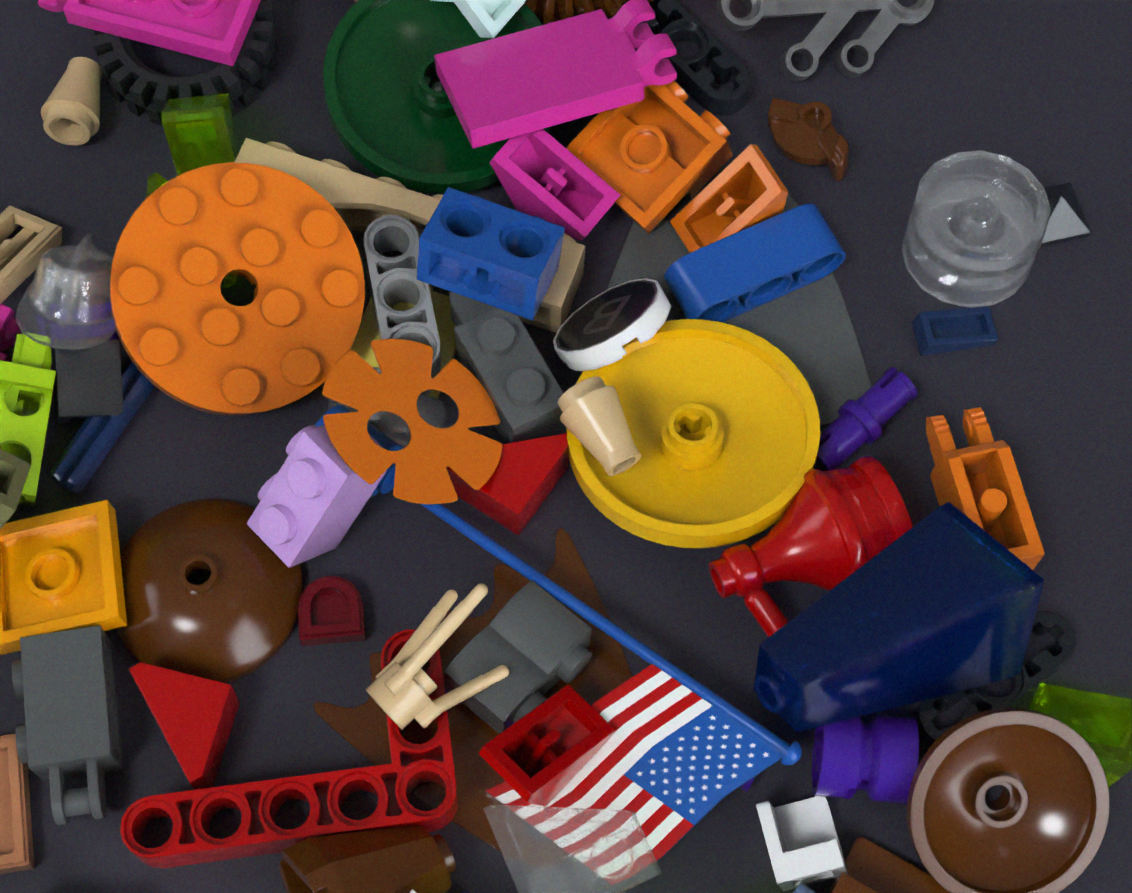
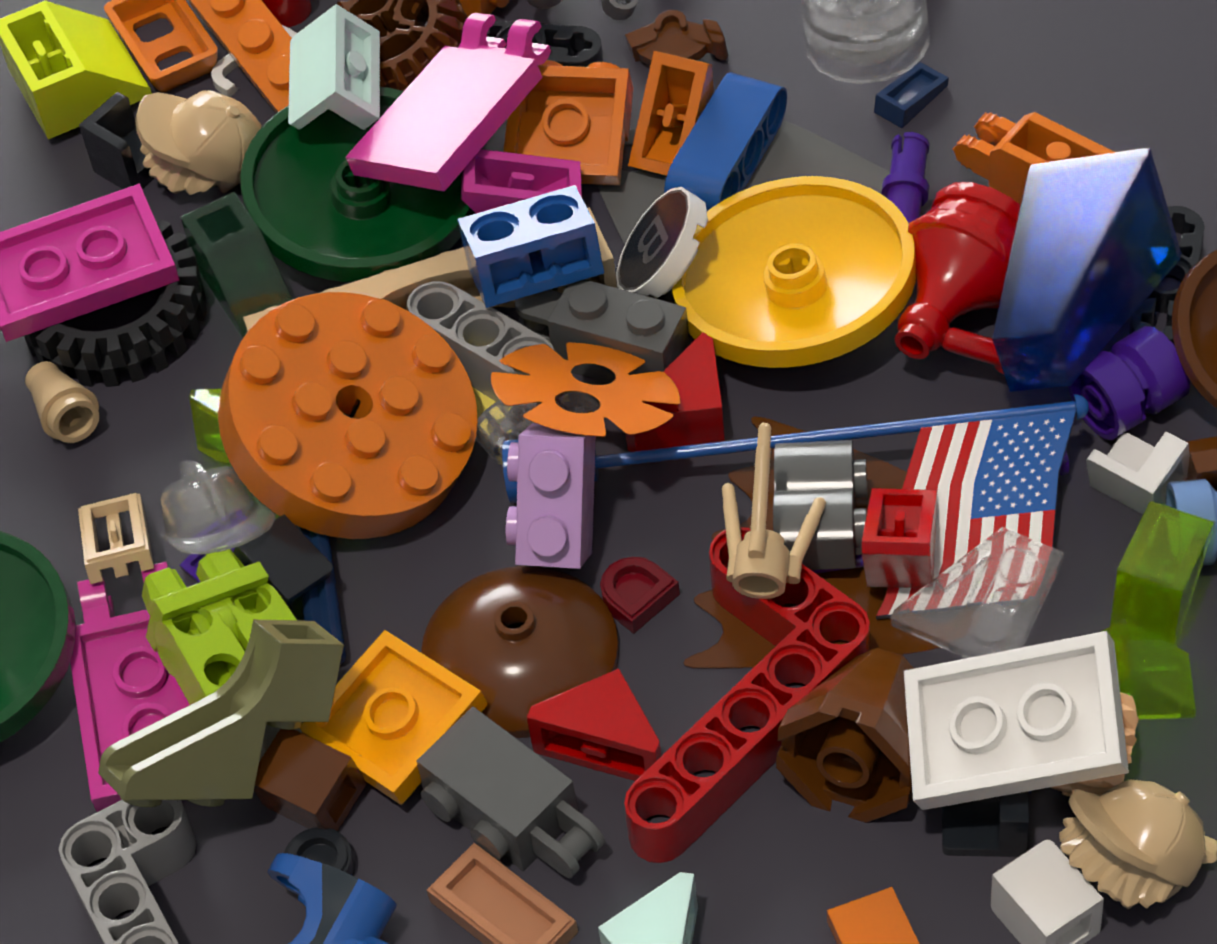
camera: 30 degrees left, 15 degrees down
(199, 131) = (202, 339): clear neon green slope -> none
(290, 82) = (234, 259): none -> clear green slope
(598, 422) = (727, 299): tan cone -> none

